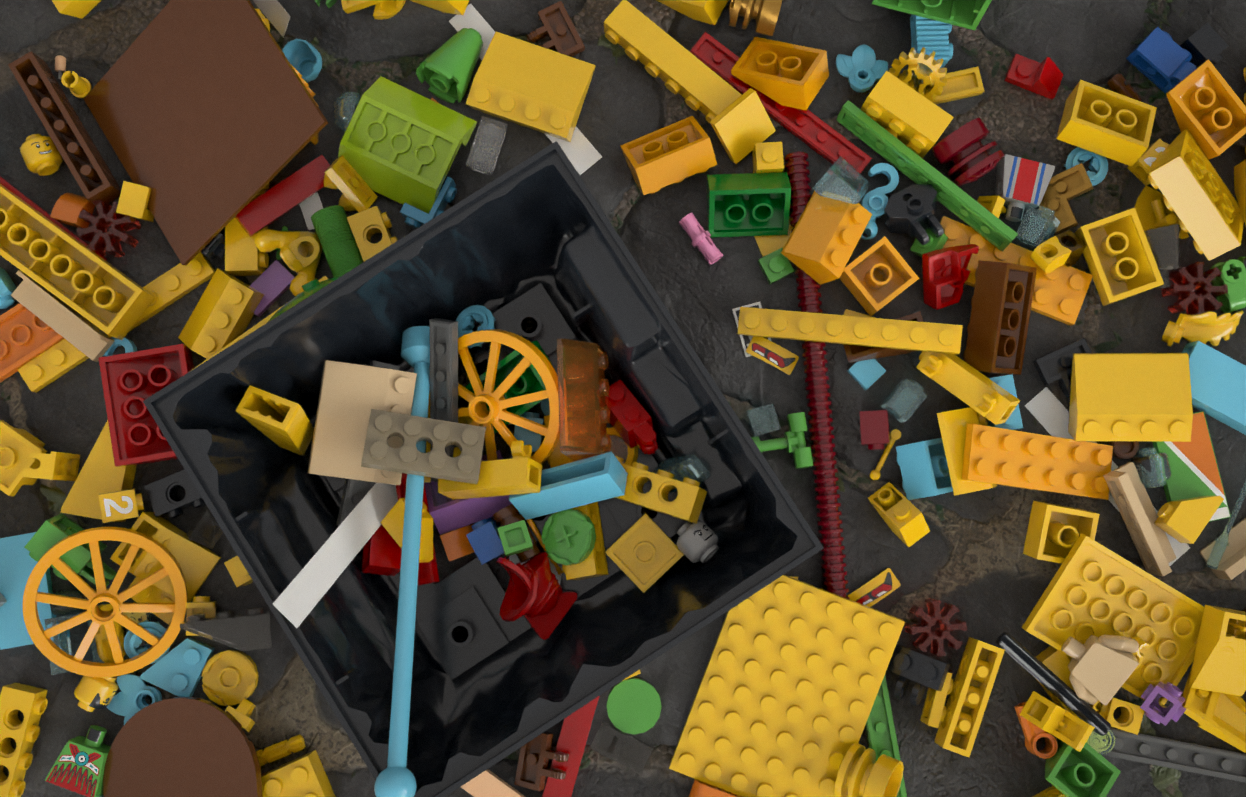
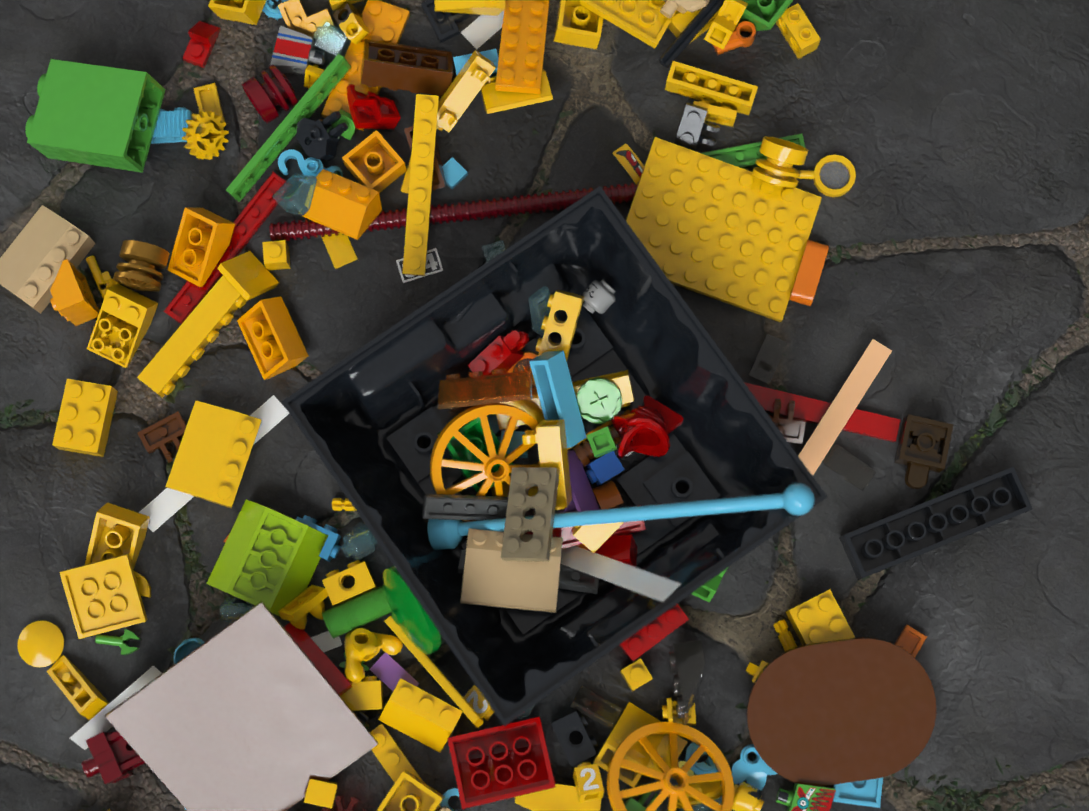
camera: 90 degrees left, 5 degrees down
(180, 668) = (724, 730): medium azure wing -> none
(229, 677) = (729, 687): yellow tile -> none
(277, 419) = (512, 634): yellow slope -> none
(452, 65) = (196, 522): bright green cone -> none
(467, 319) = (415, 484): medium azure gear -> none
(486, 145) = (265, 492): clear plate -> none
(634, 706) = (737, 348): bright green tile -> none
(644, 553) = (609, 340): yellow tile -> none
(700, 238) = (344, 309): bright pink pin -> none
(748, 204) = (314, 270): green slope -> none
(772, 354) = (440, 248): yellow sticker -> none
(775, 266) = (366, 248): bright green plate -> none
(793, 441) = (512, 228): bright green bar -> none
(861, 64) = (192, 180): medium azure plate -> none
(874, 429) = (500, 164): dark red brick -> none
(894, 435) = (504, 150): yellow hinge -> none
(899, 514) = (569, 144): yellow slope -> none
(904, 400) = (475, 141): clear light blue brick -> none
(906, 114) = (238, 143): yellow brick -> none
(924, 469) = (531, 124): medium azure slope -> none
(935, 616) = (667, 114): clear red gear -> none

